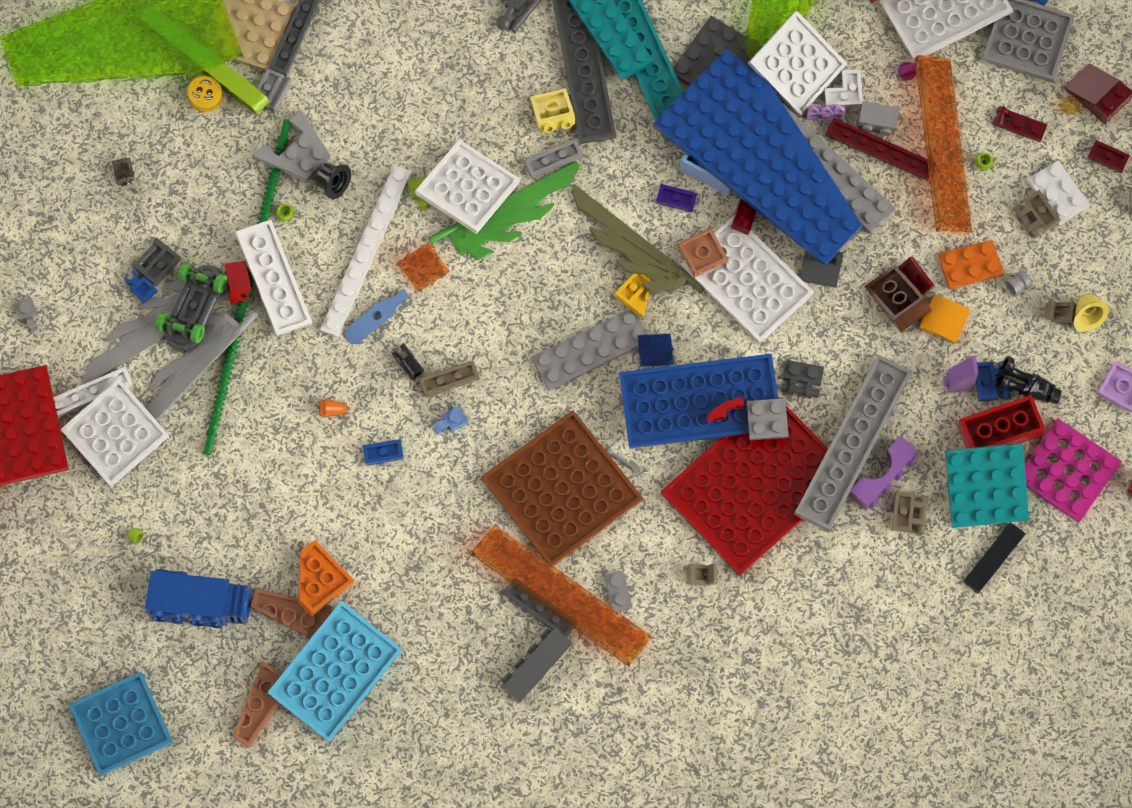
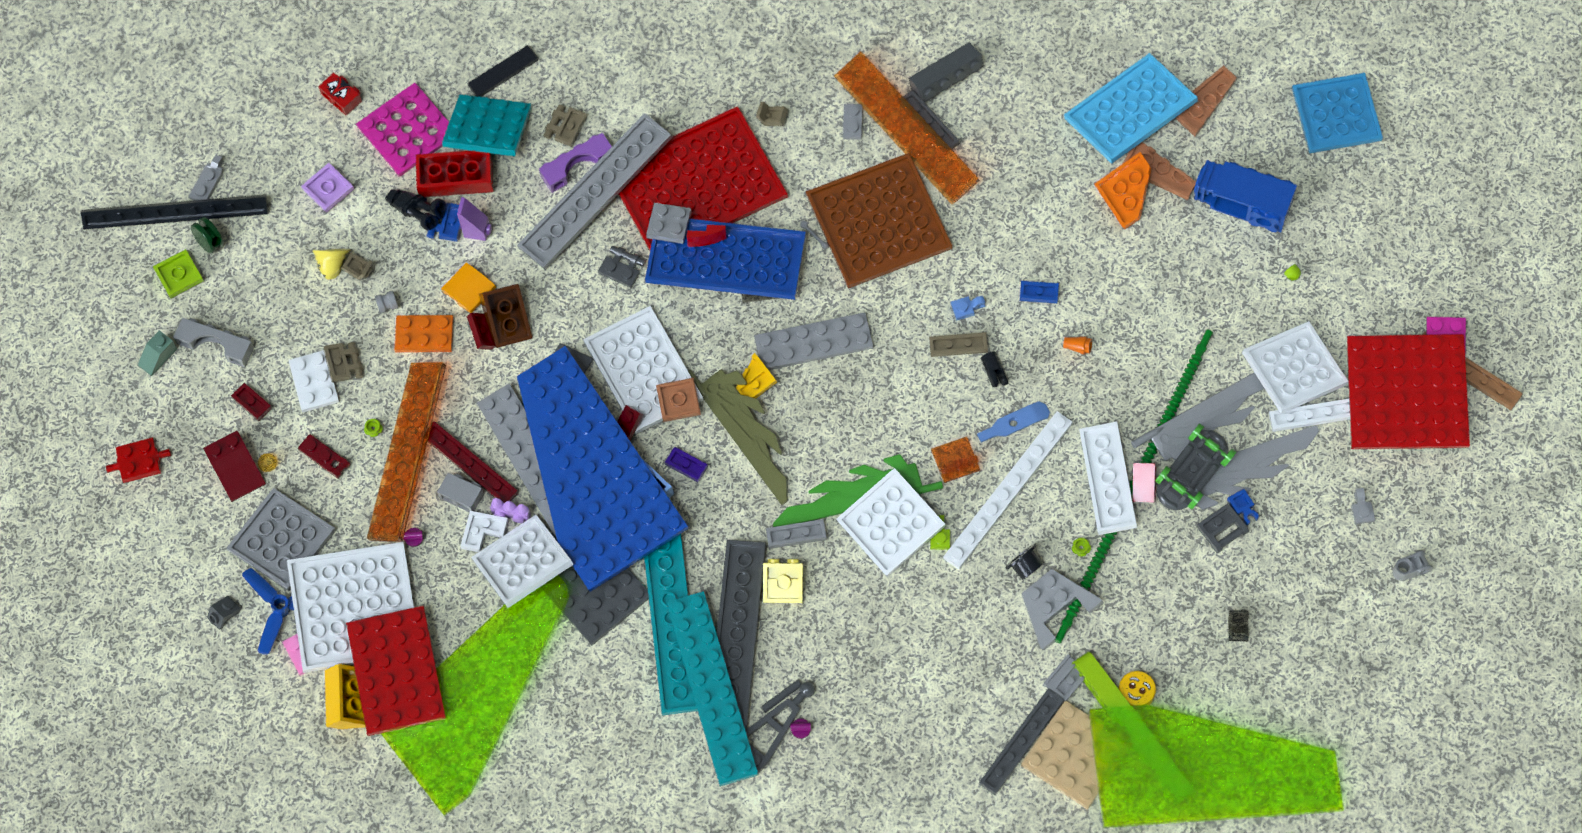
camera: 160 degrees left, 5 degrees down
(655, 350) = (752, 323): clear blue piece -> none

